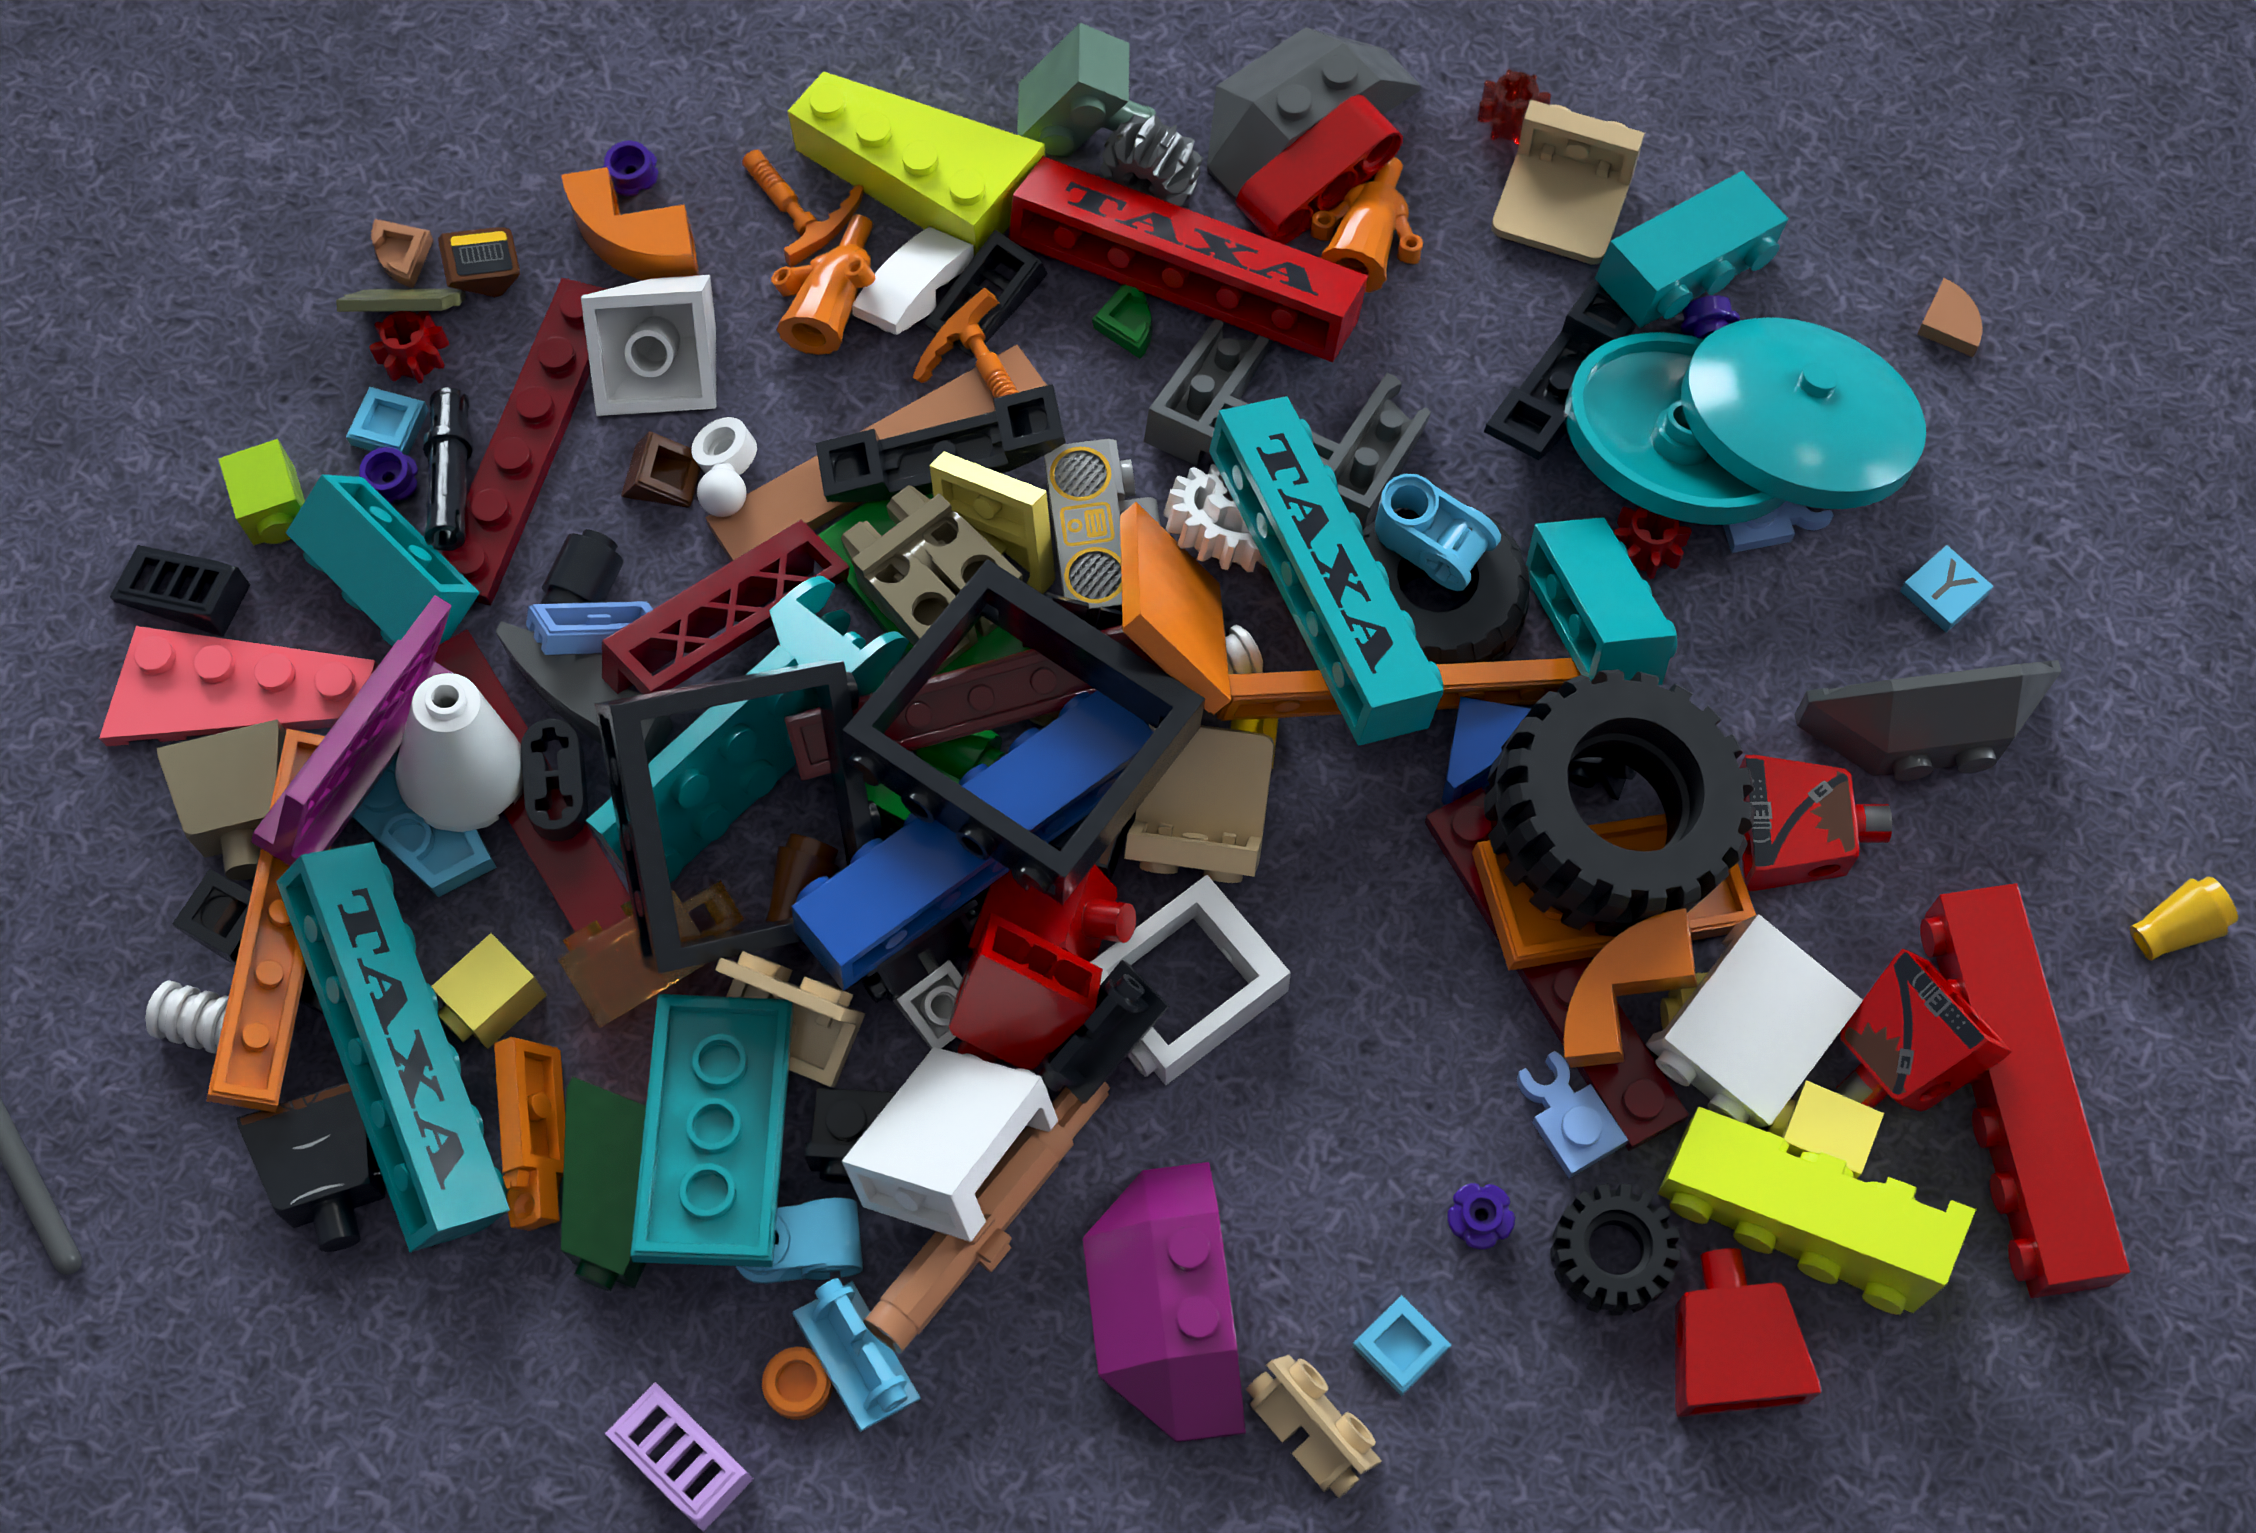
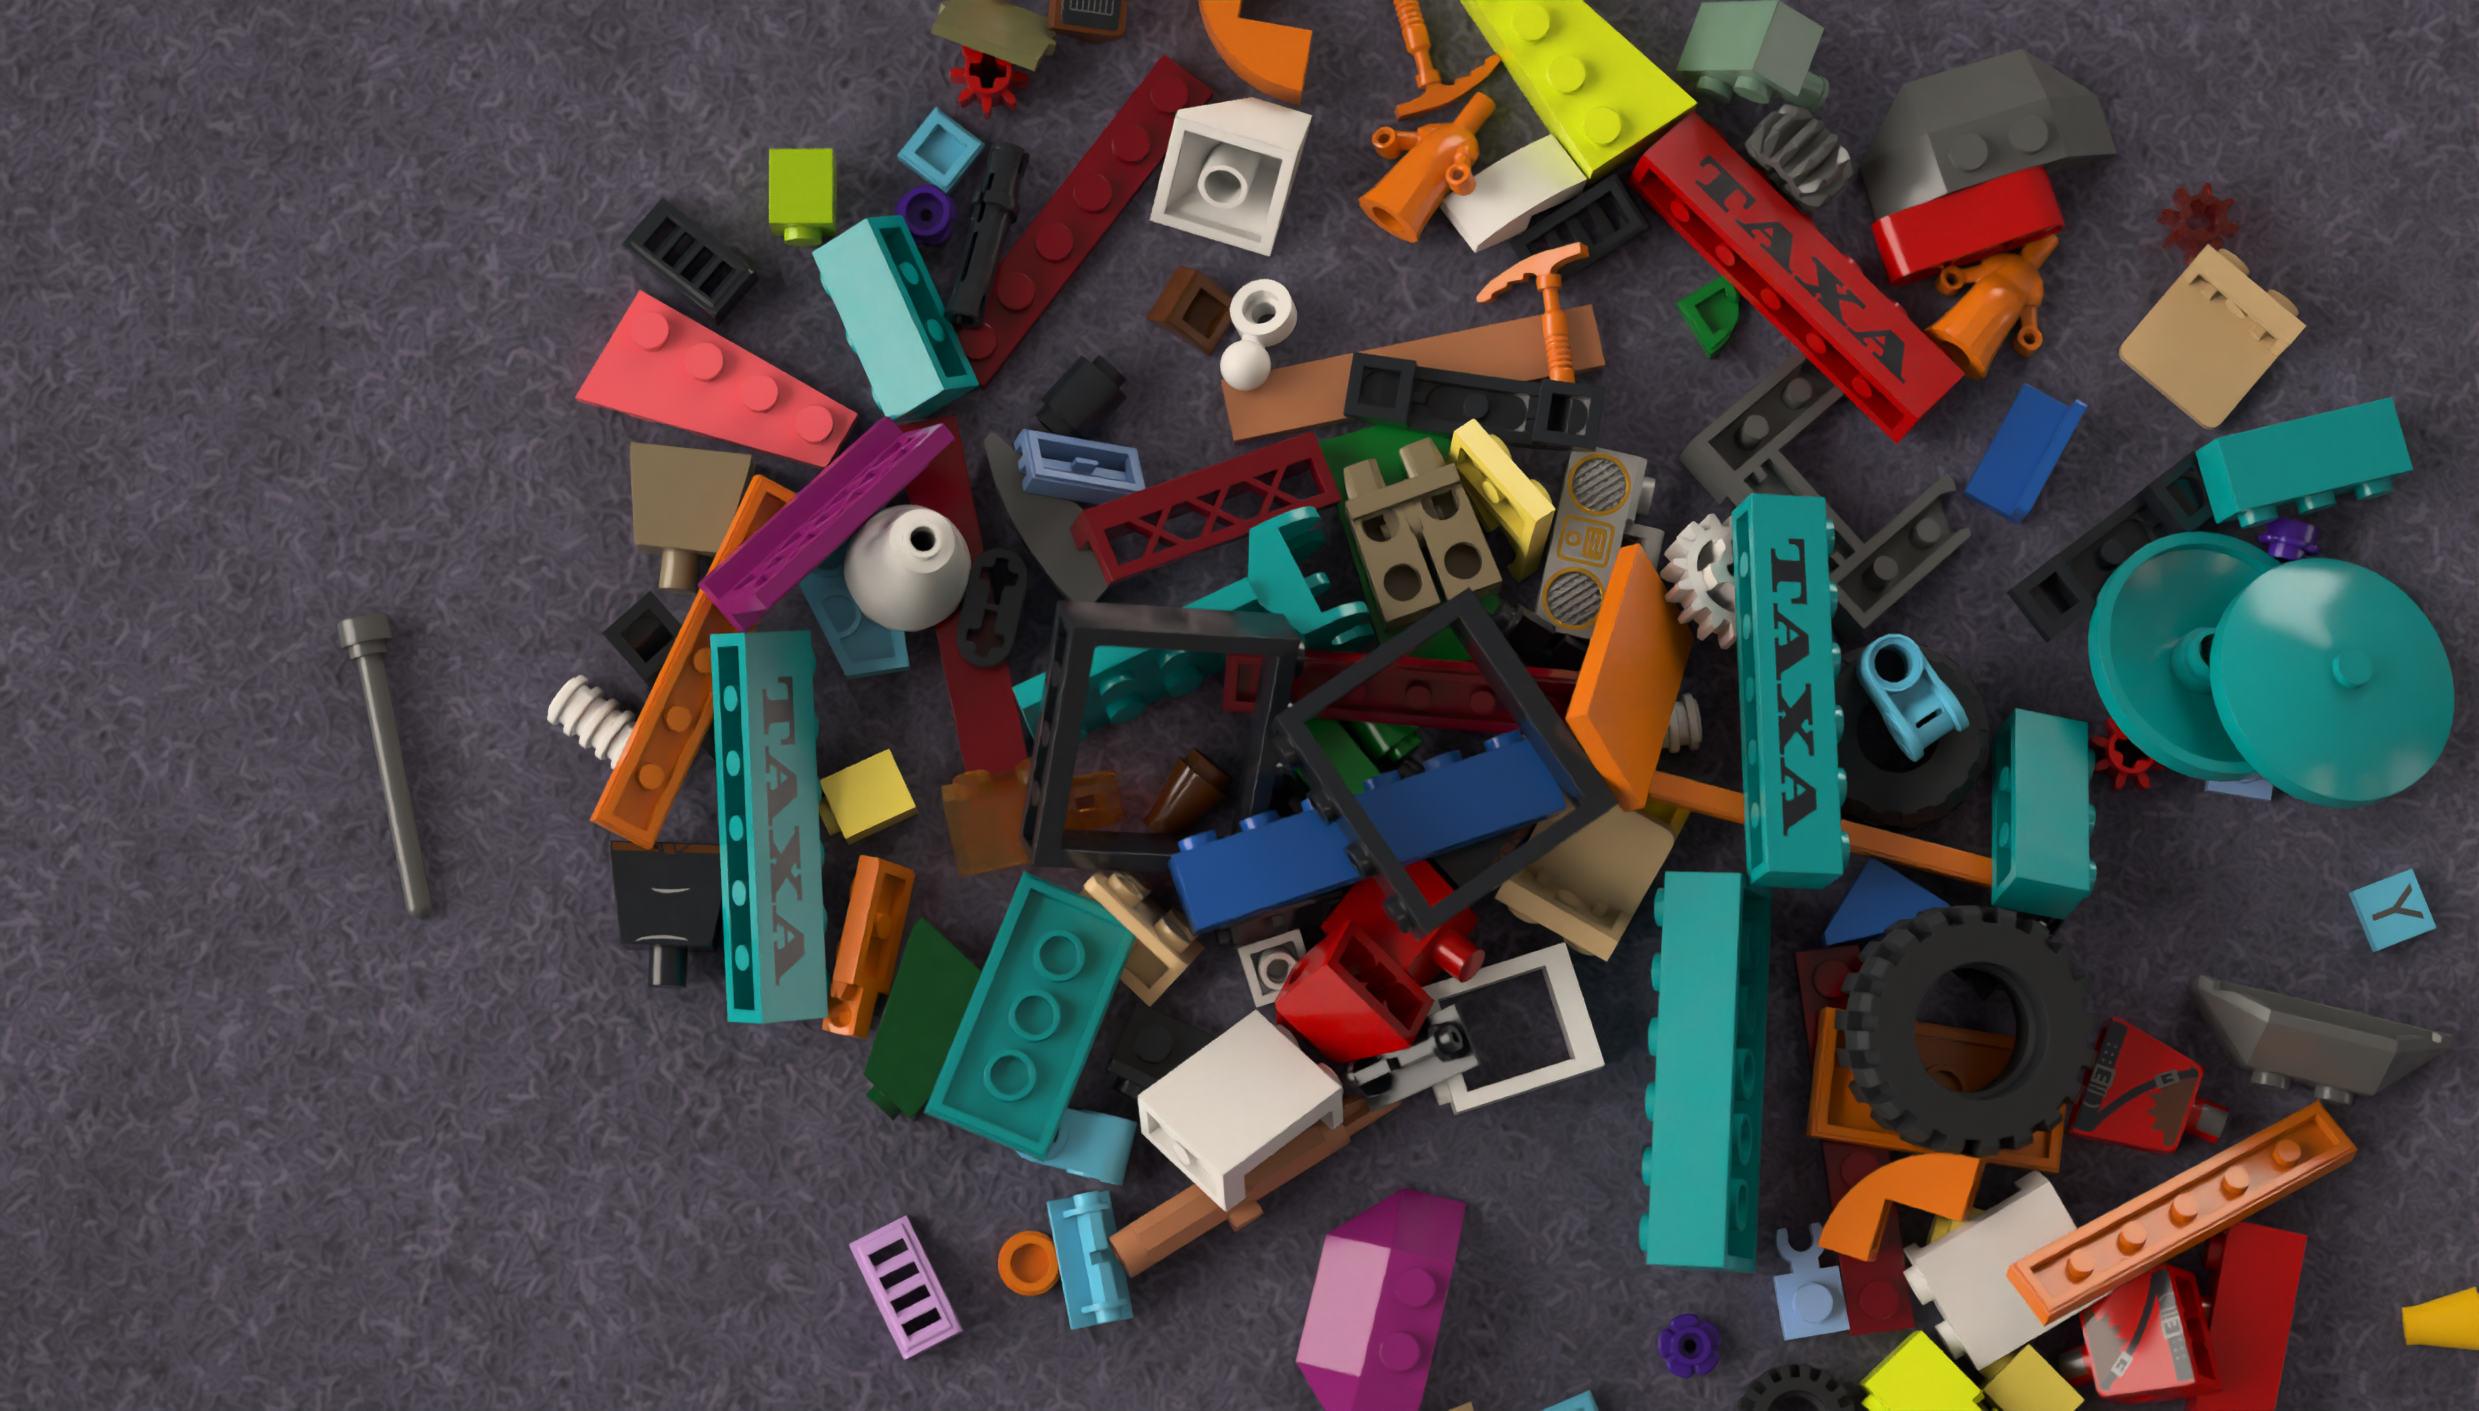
camera: 15 degrees right, 15 degrees up
(1392, 944) = (1707, 1073): none -> teal brick
(1447, 334) = (2023, 453): none -> blue panel
(1889, 906) = (2180, 1213): none -> orange tile

